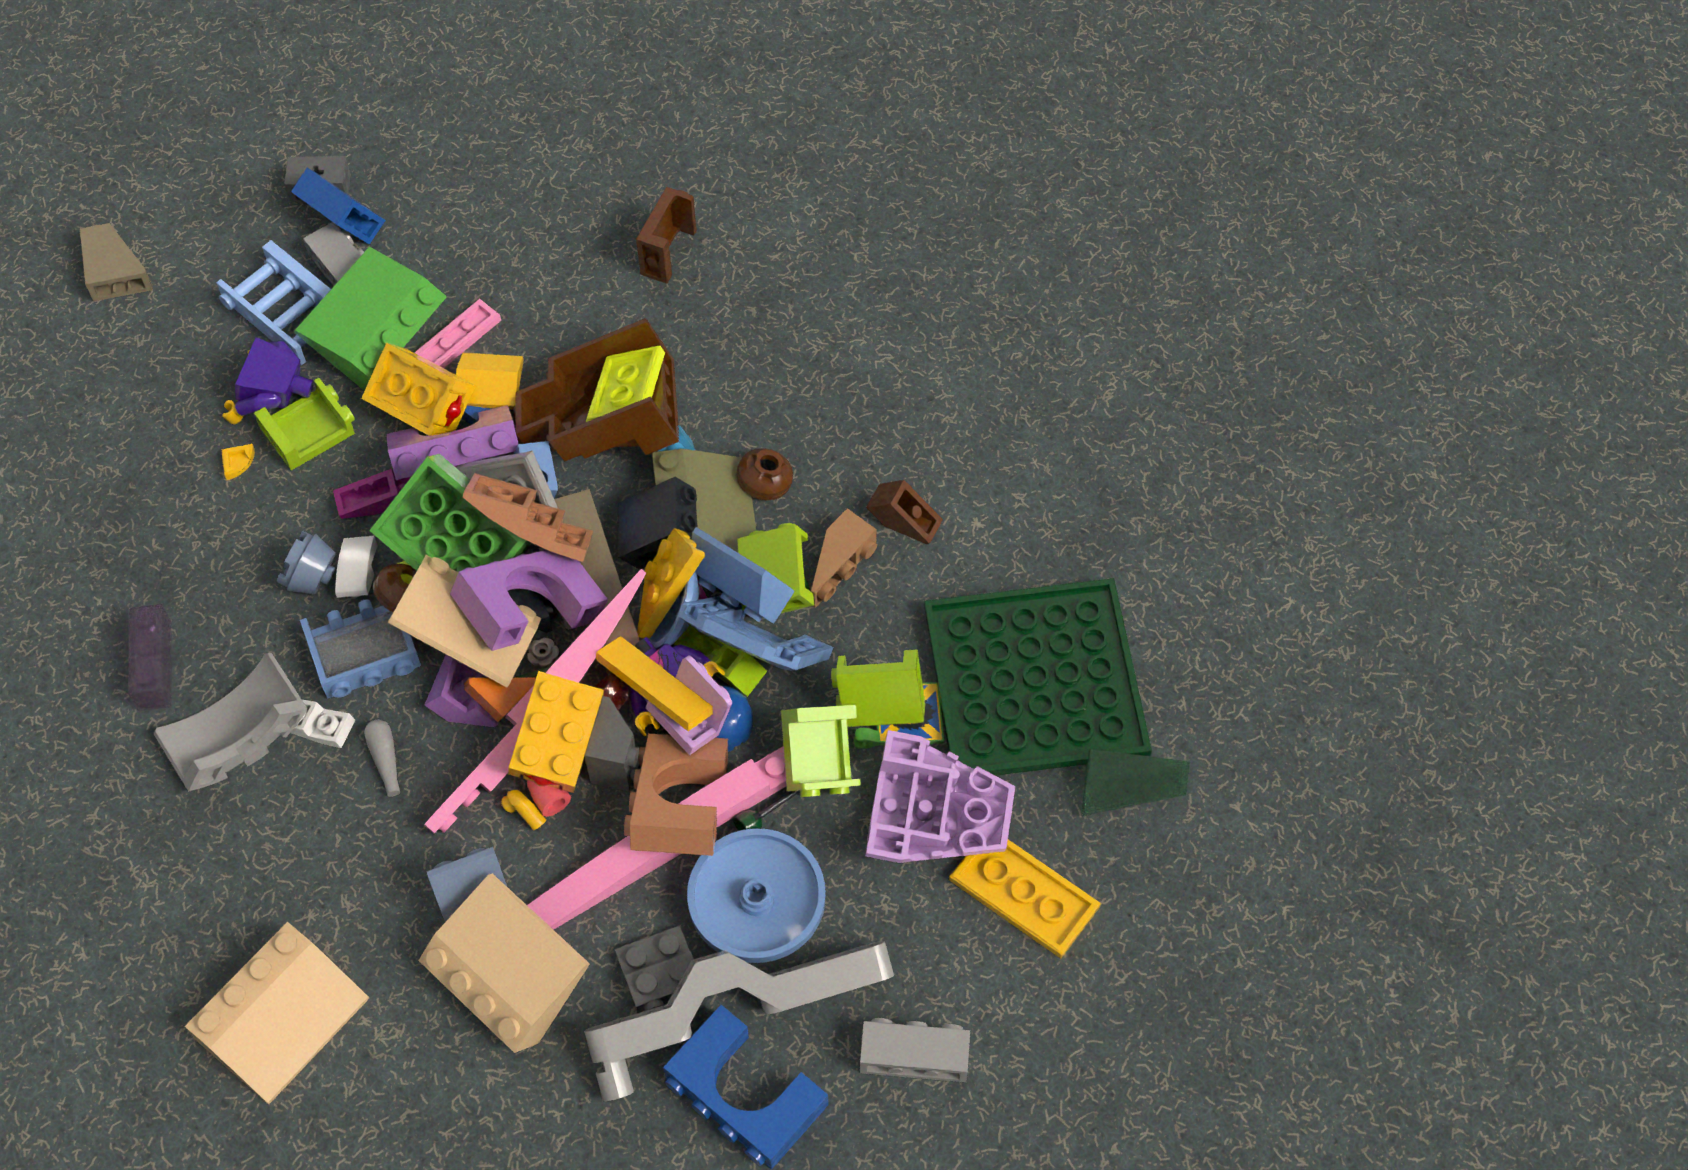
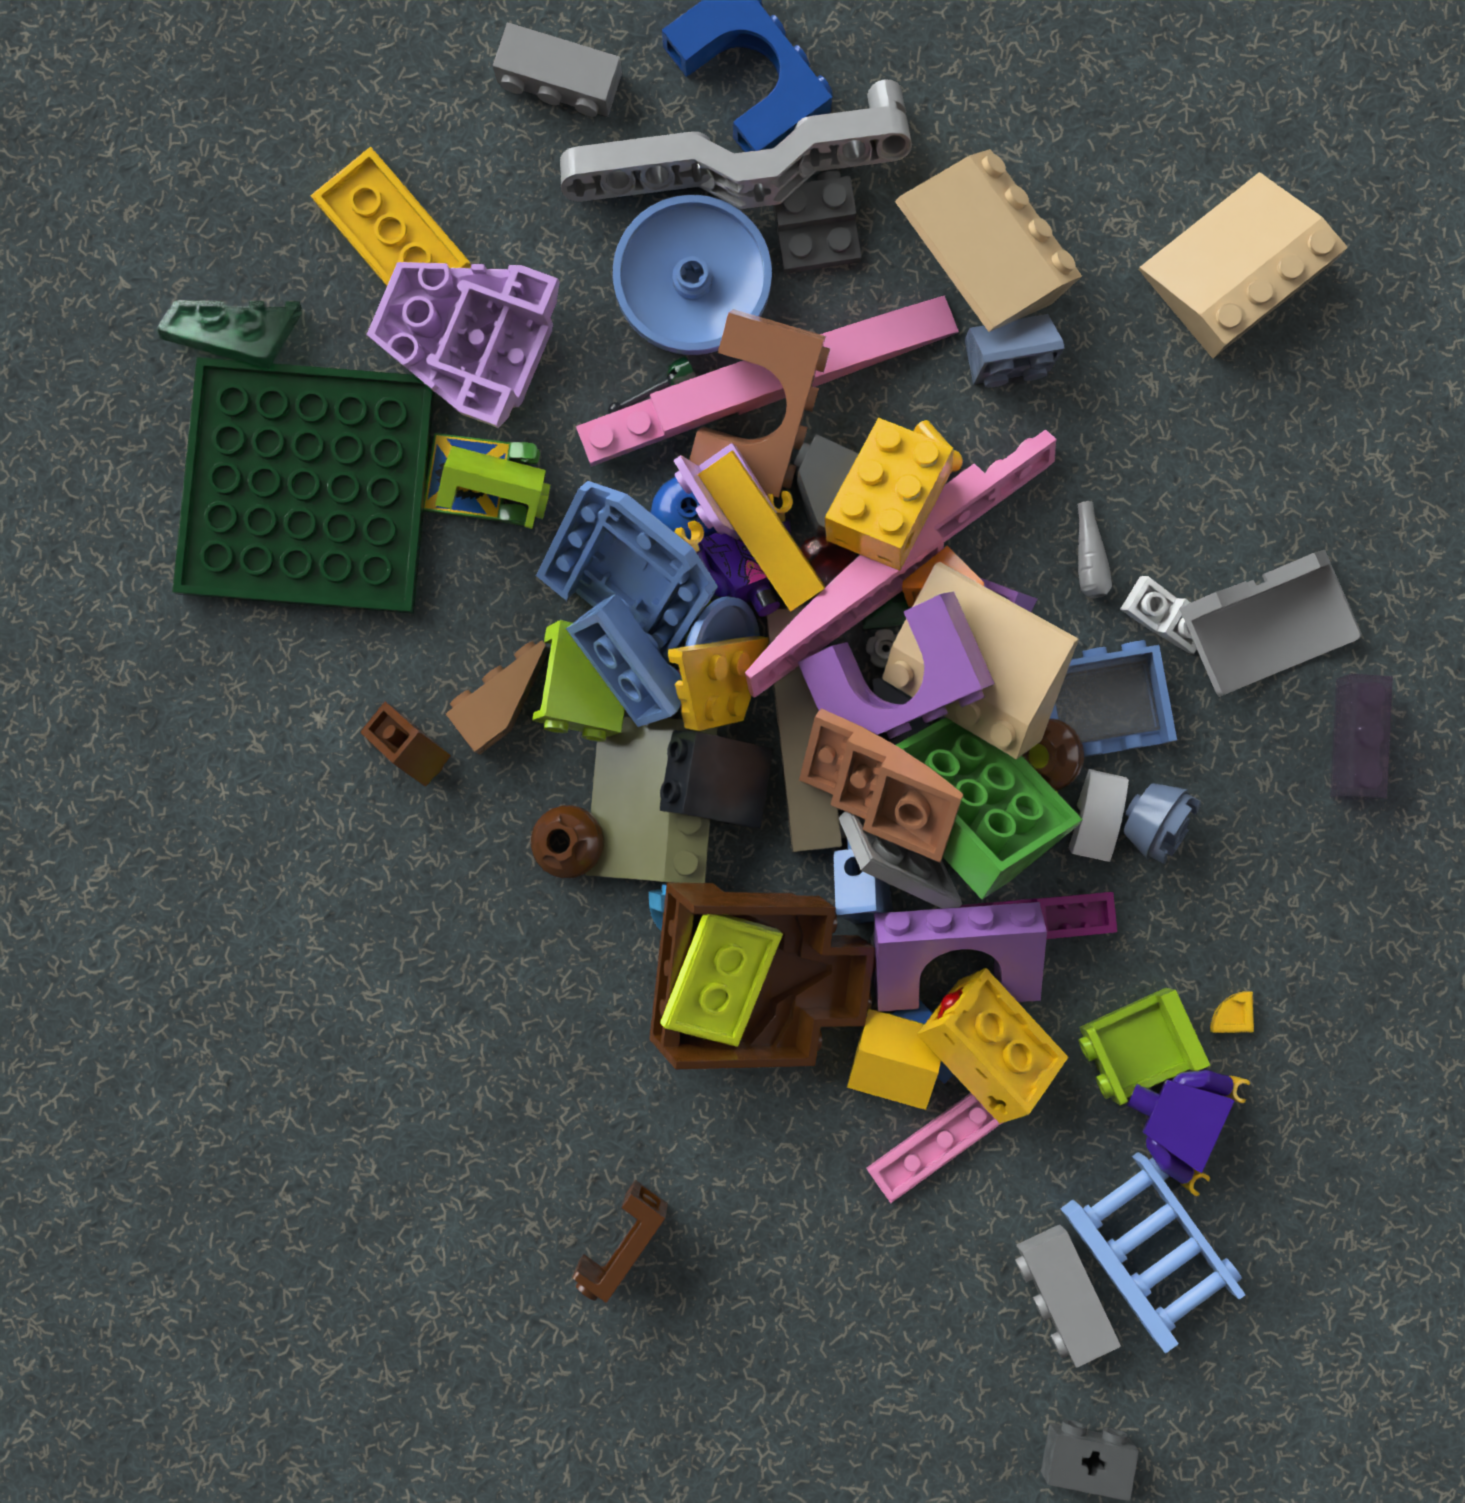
camera: 170 degrees left, 25 degrees up
(110, 265) = (1388, 1373): dark tan slope -> none
(338, 206) = (1070, 1391): blue slope -> none
(365, 310) = (1042, 1189): bright green slope -> none
(817, 749) = (583, 424): panel -> none

